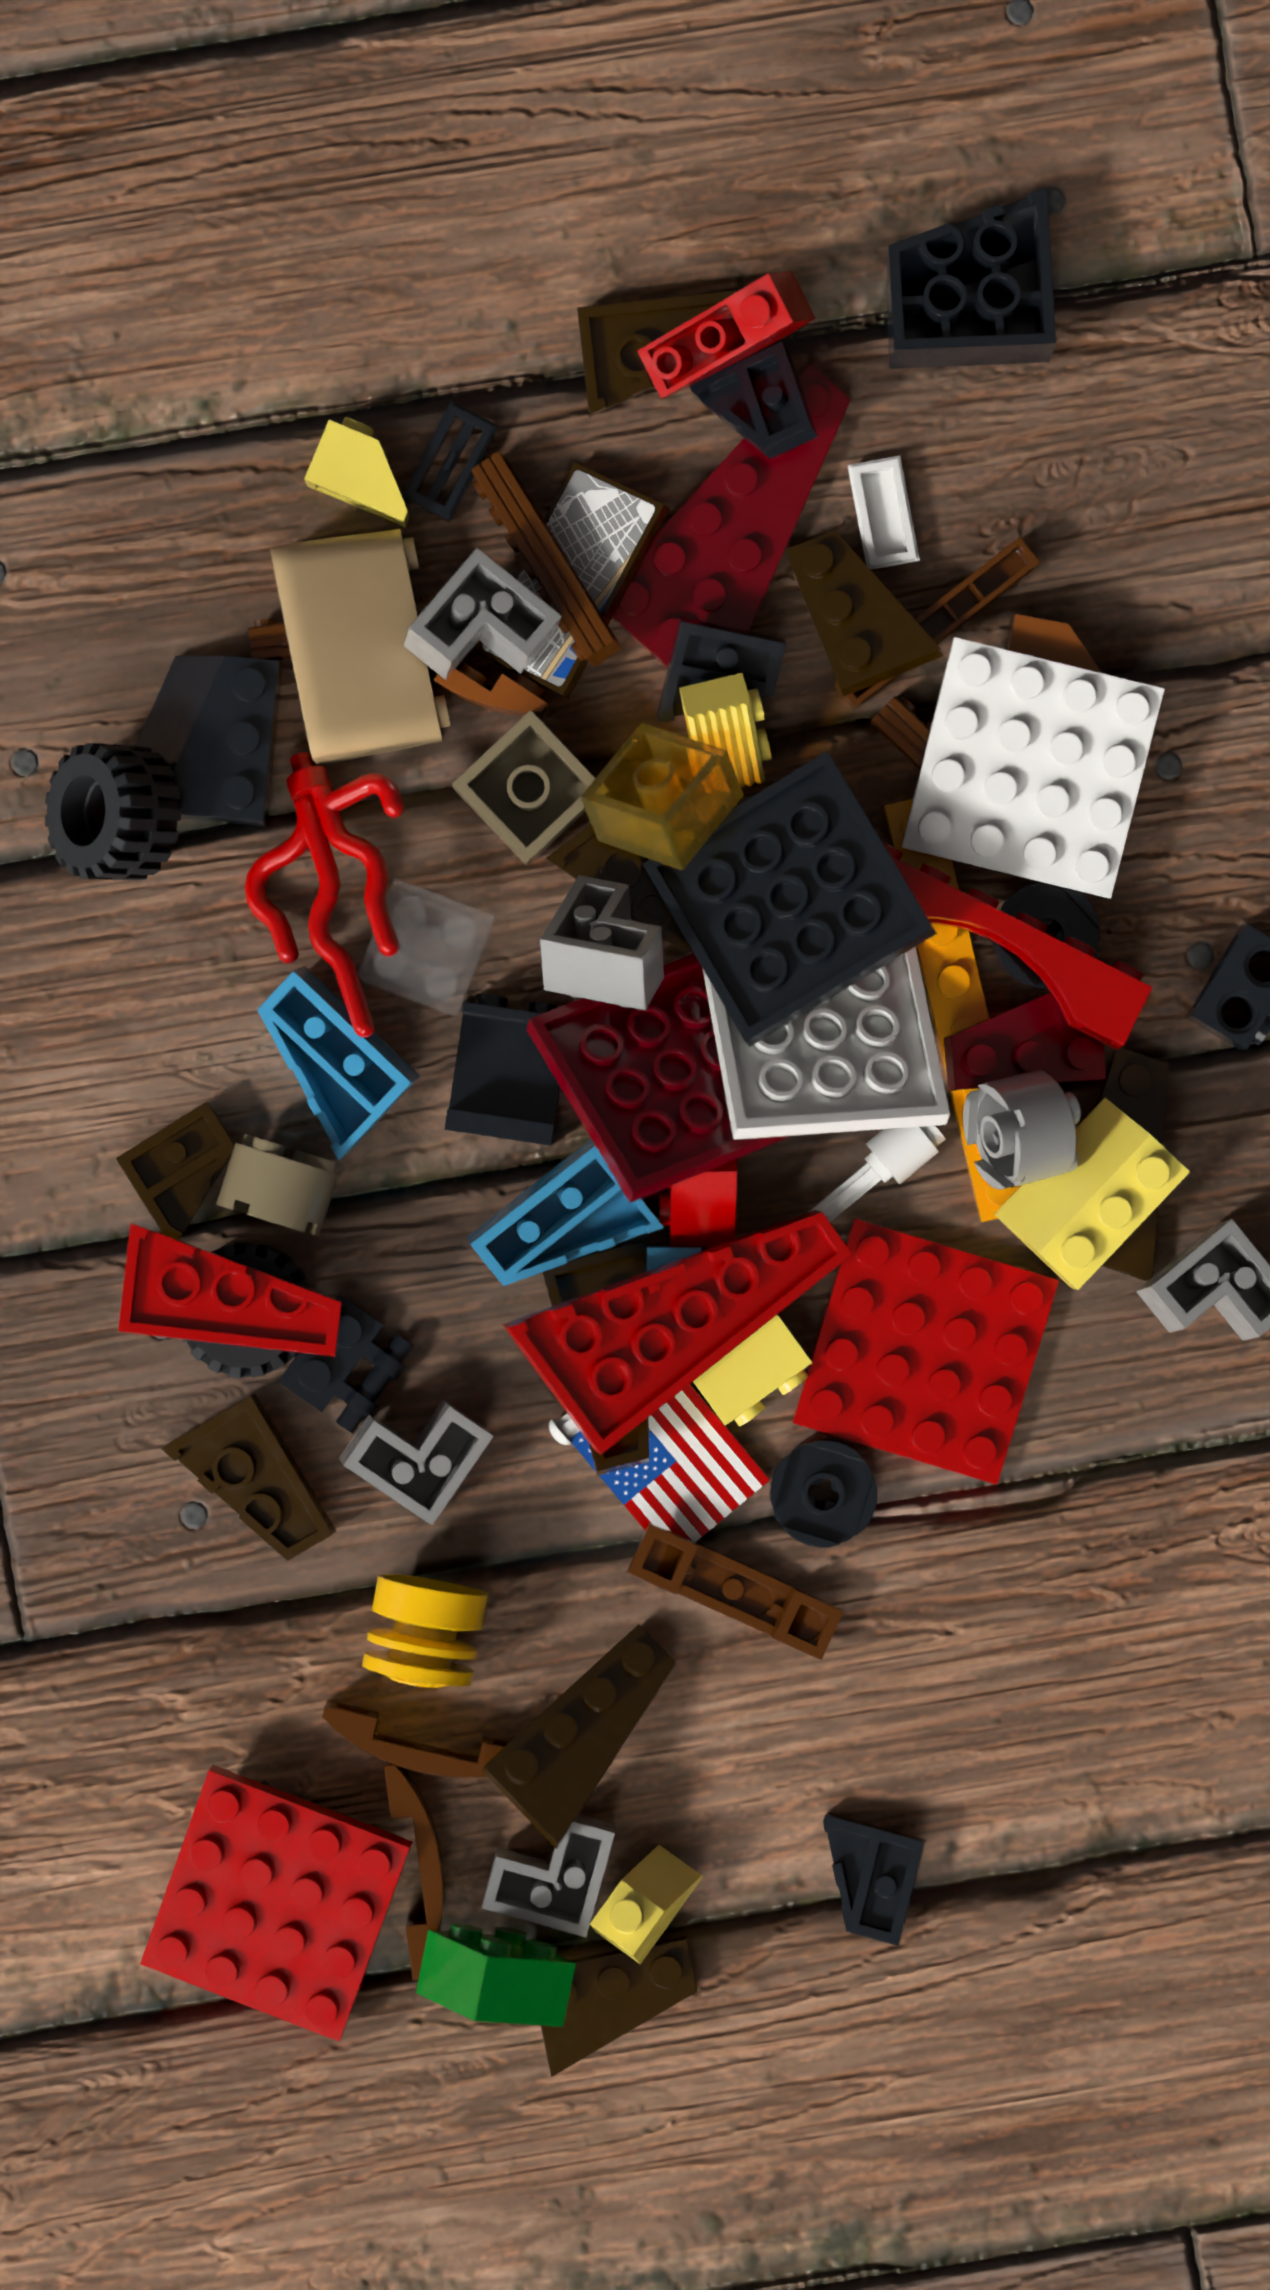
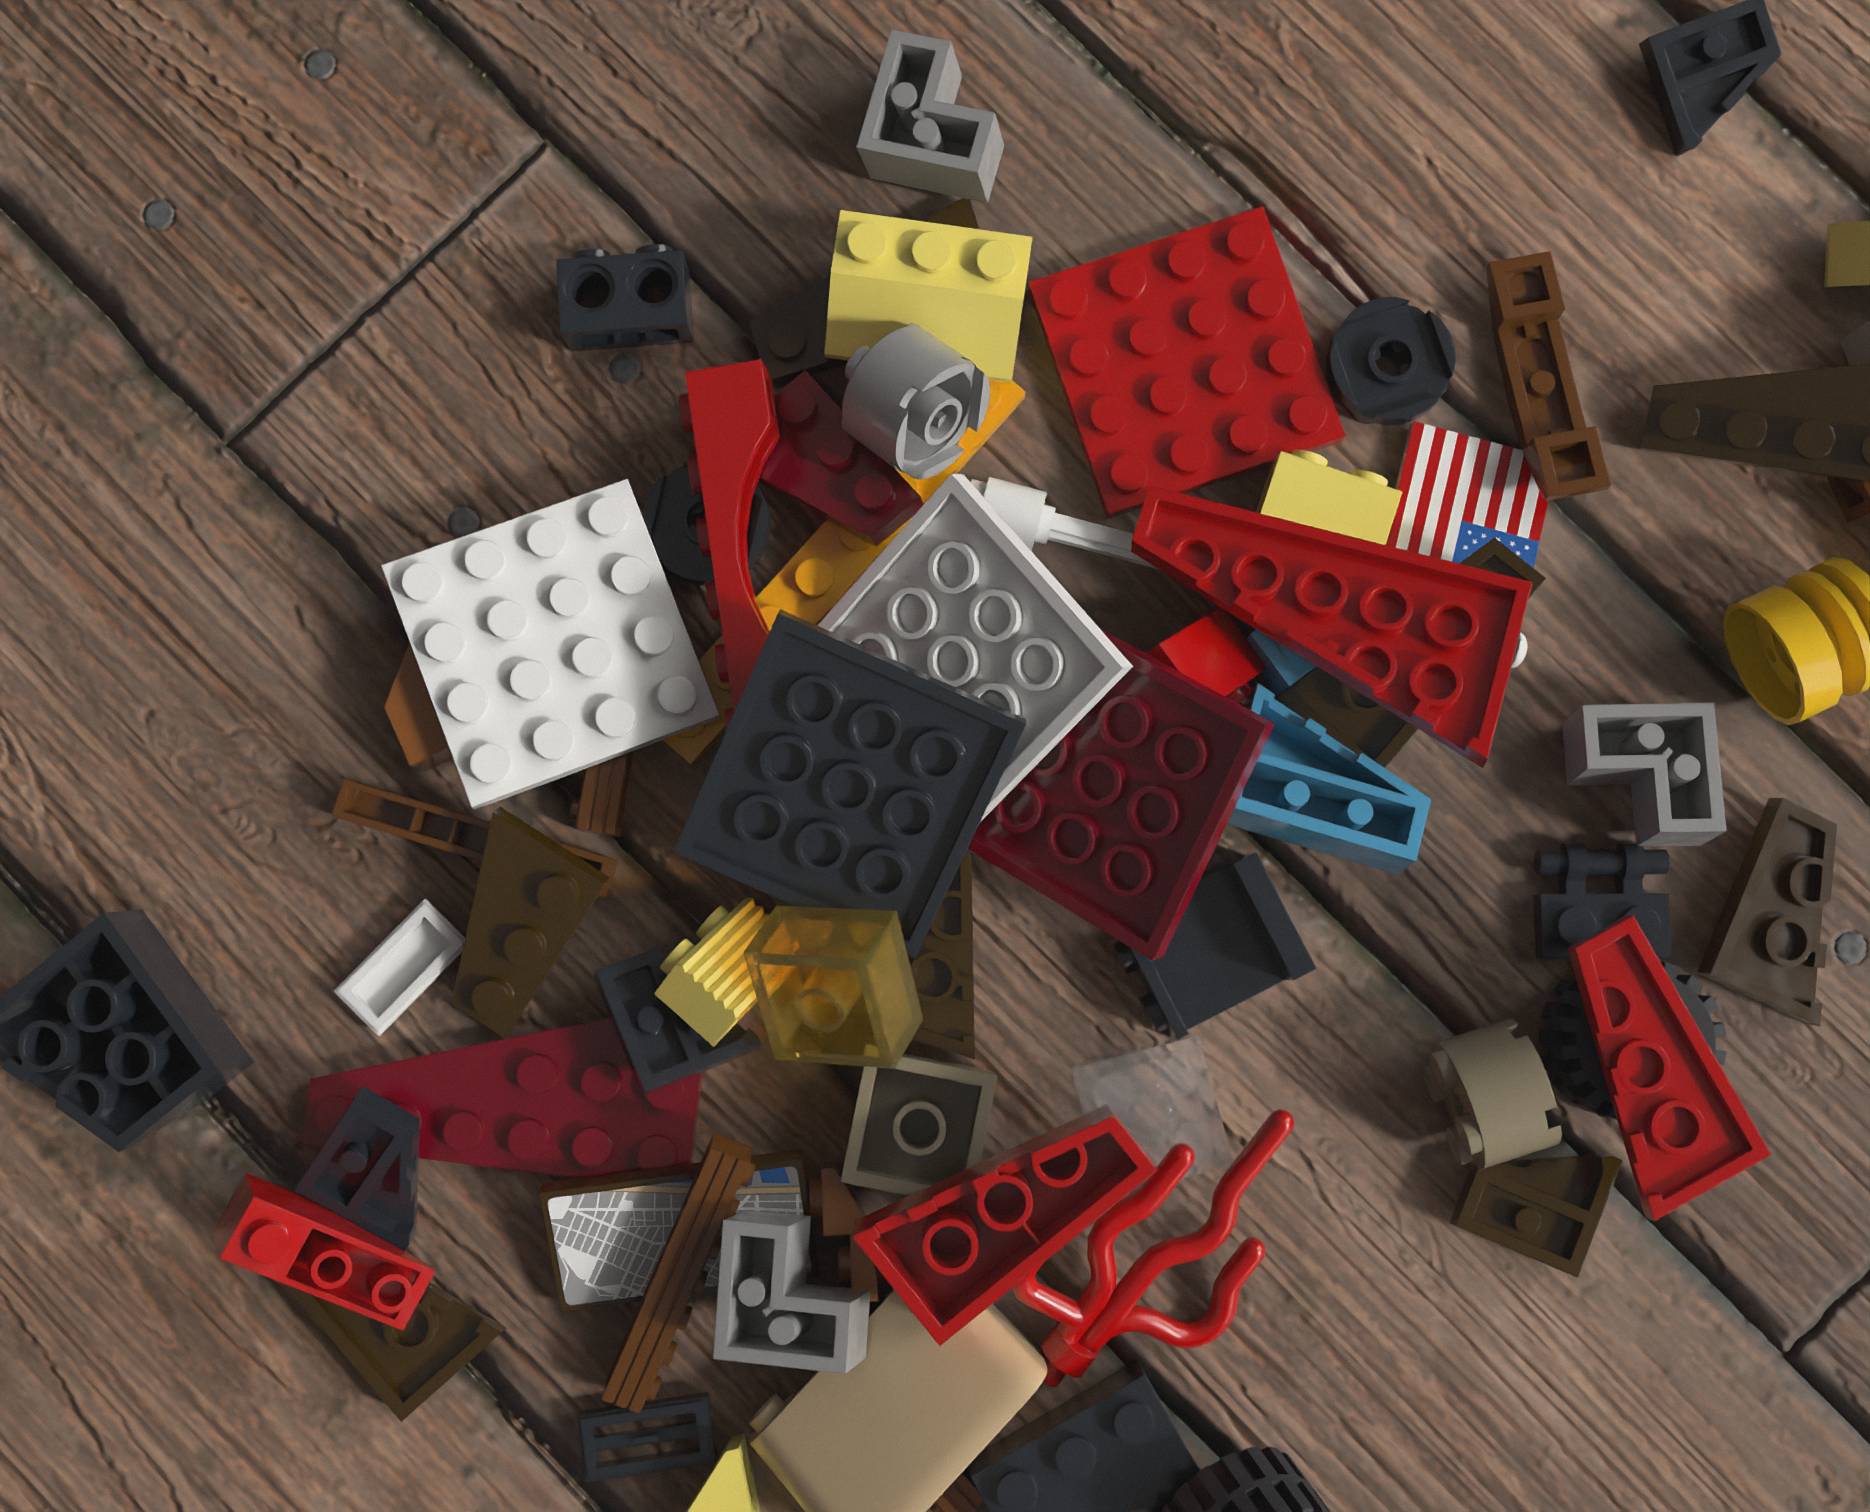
camera: 130 degrees left, 5 degrees down
(343, 1075) = (1340, 1107): dark azure wedge -> none
(435, 794) = (996, 1222): none -> red wedge
(598, 950) = (1033, 939): light grey brick -> none

